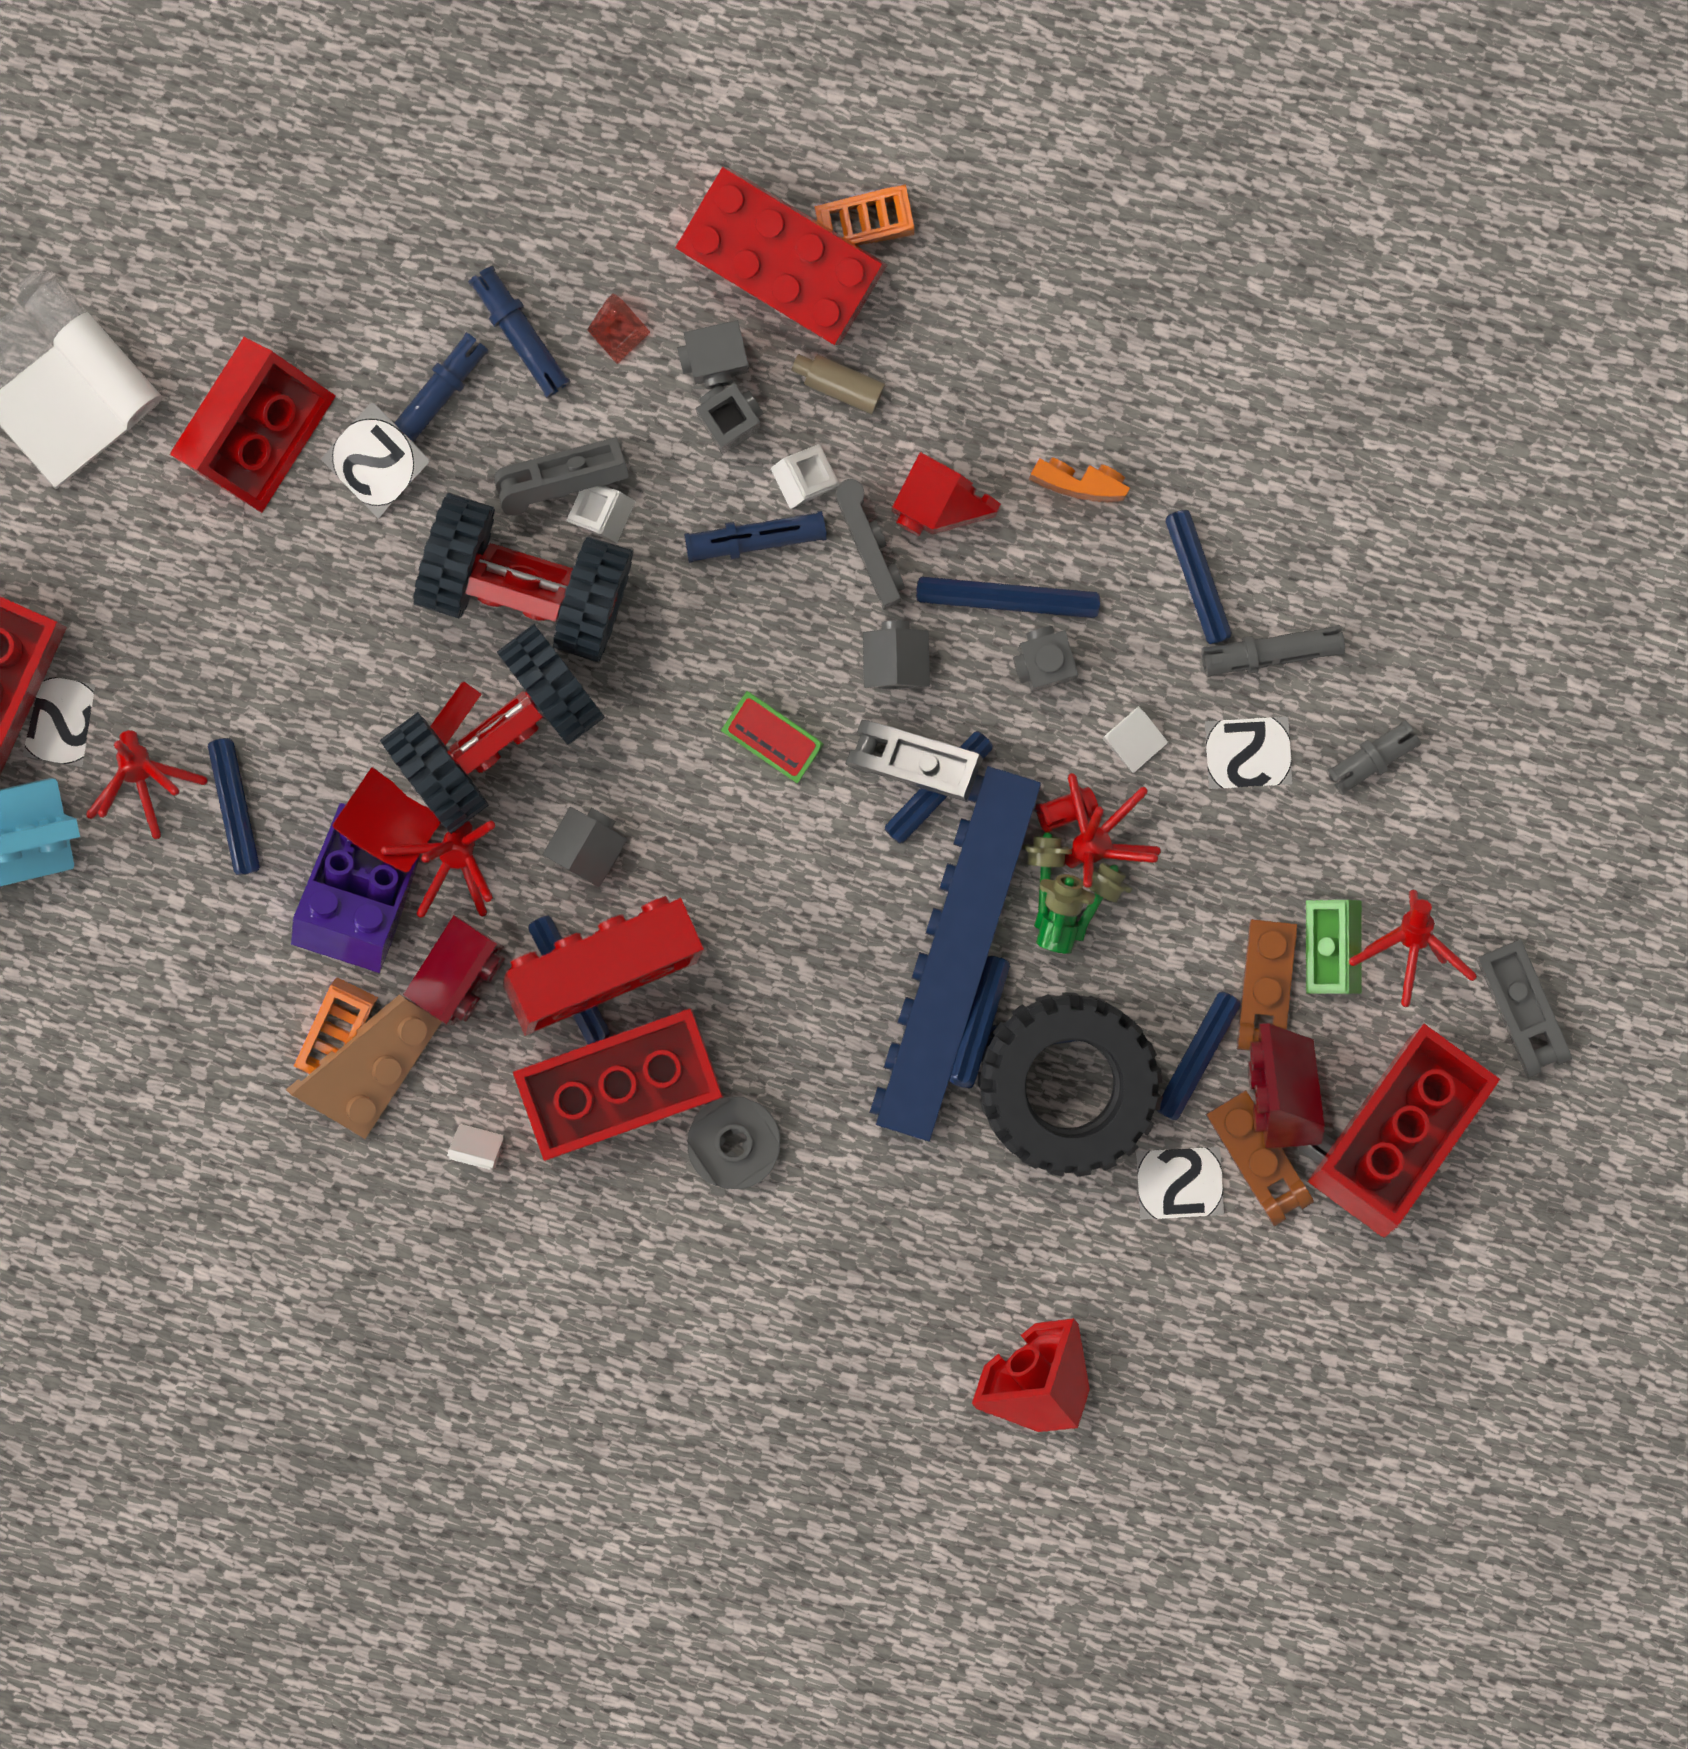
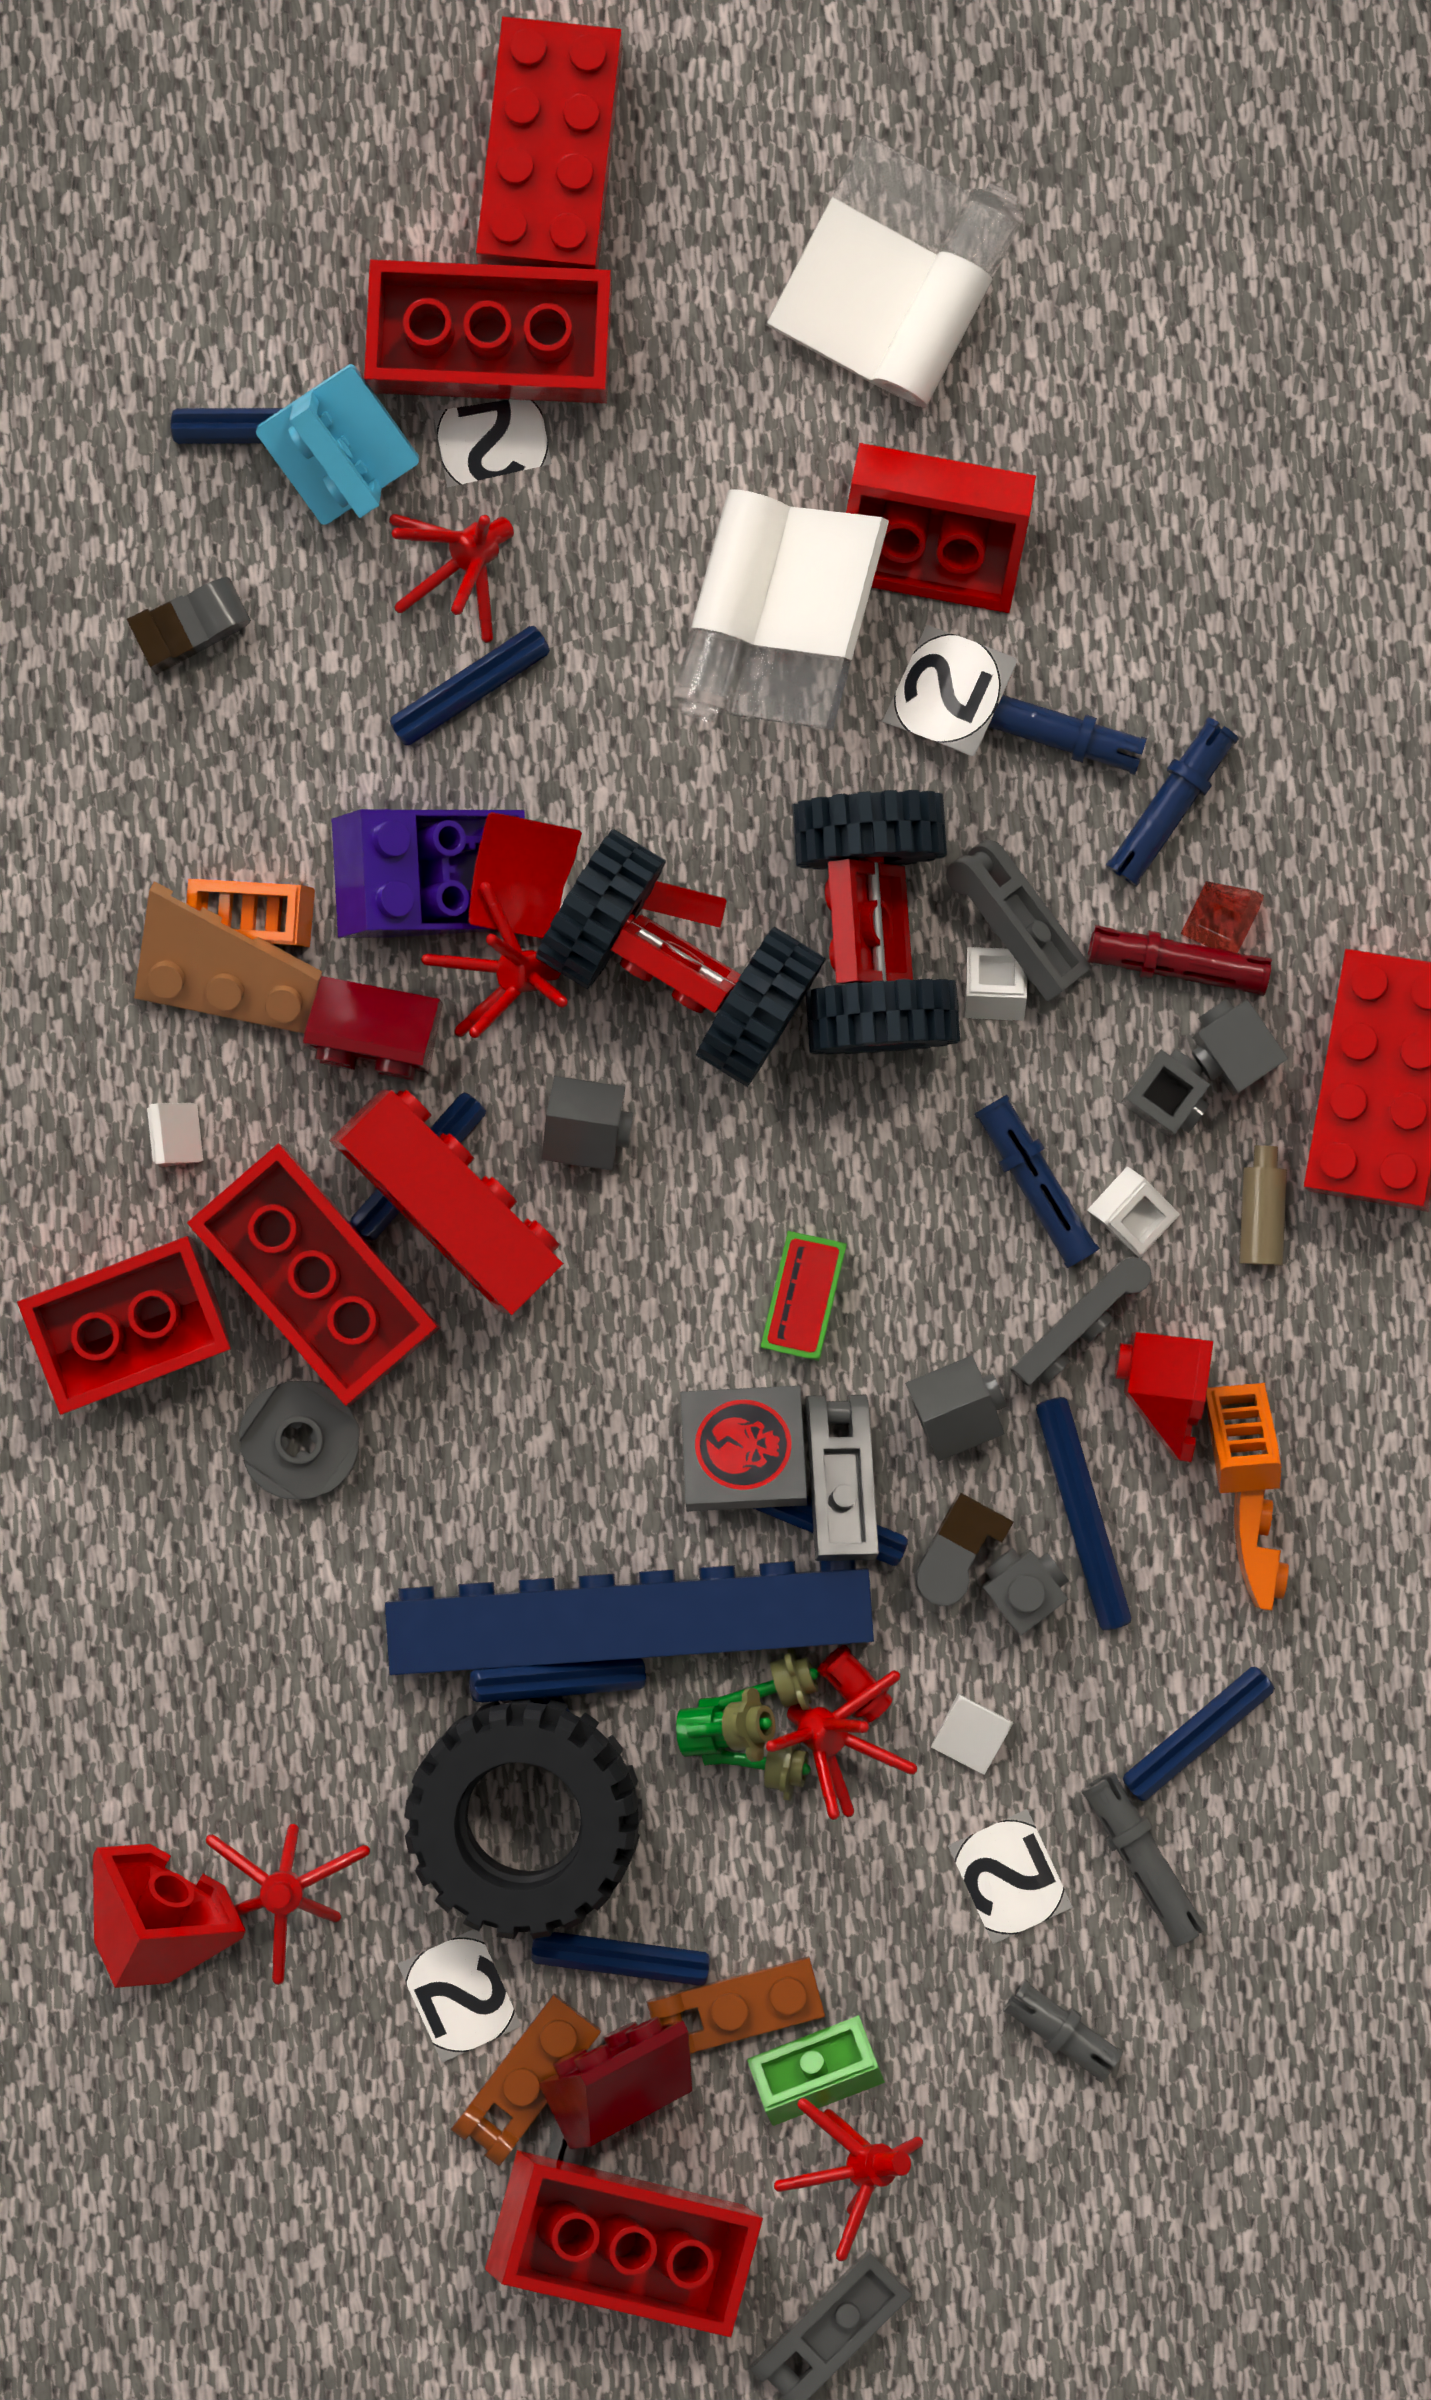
camera: 70 degrees right, 0 degrees up
(107, 992) = (189, 624): none -> leg
(270, 560) = (779, 612): none -> white door
(600, 1235) = (125, 1324): none -> red slope
(626, 386) = (1165, 957): none -> dark red pin
(865, 823) = (743, 1448): none -> tile
(1007, 711) = (944, 1568): none -> leg
(1023, 465) = (1247, 1471): none -> orange slope
(1054, 1277) = (284, 1890): none -> red plant

